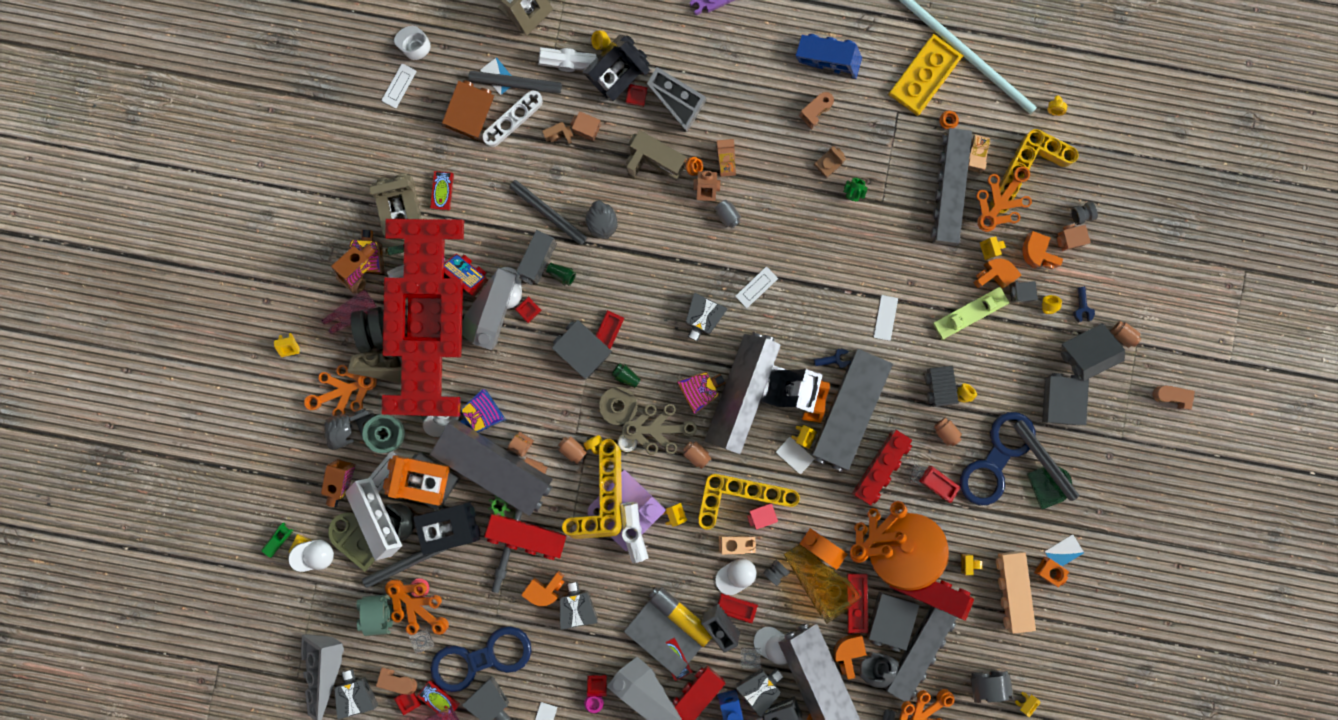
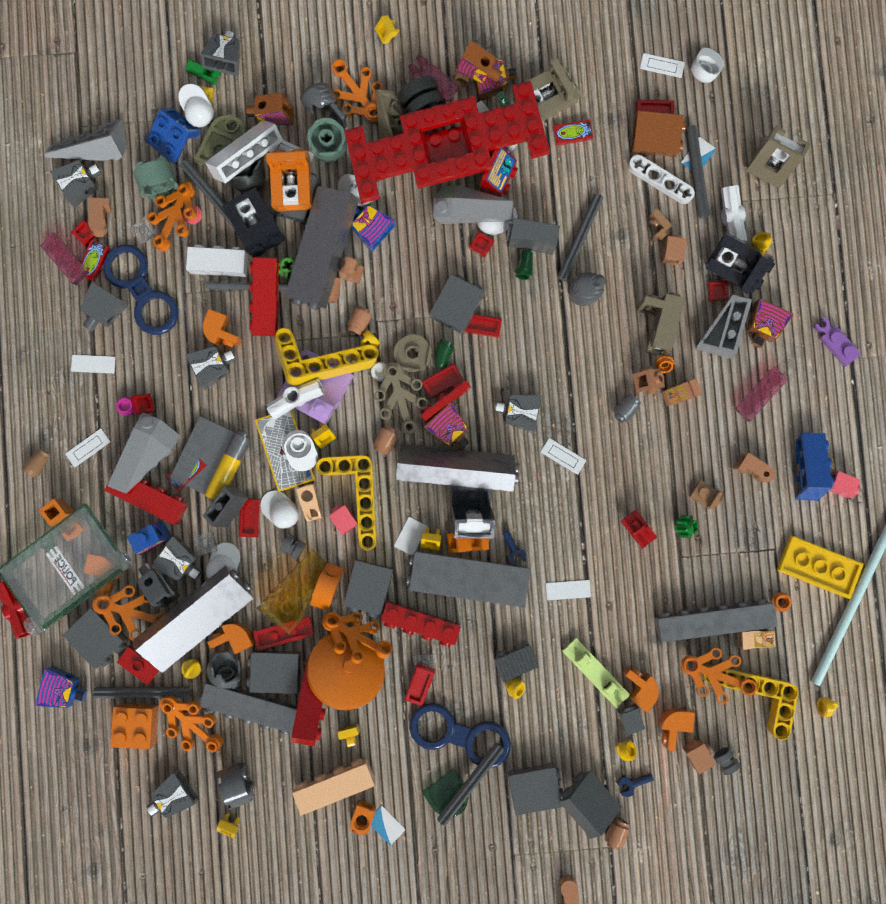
camera: 80 degrees right, 0 degrees up
(266, 515) = (222, 54): none -> dark grey torso
(331, 588) = (171, 133): none -> blue bracket
(440, 104) = (657, 106): none -> red tile
(474, 574) = (217, 261): none -> white brick
(652, 384) = (442, 380): none -> red tile
(673, 387) = (443, 400): none -> red plate
(680, 57) = (767, 322): none -> torso
(680, 556) = (272, 436): none -> tile
(685, 540) = (300, 450): none -> white cap
(747, 82) = (761, 394): none -> clear pink plate
(835, 509) = (368, 588): none -> dark grey brick
(846, 235) = (638, 529): none -> red hips
(854, 29) = (845, 485): none -> coral brick
(868, 702) = (191, 668): none -> yellow tile
(948, 432) = (472, 679): nougat brick -> none
(991, 247) = (666, 676): yellow tile -> none

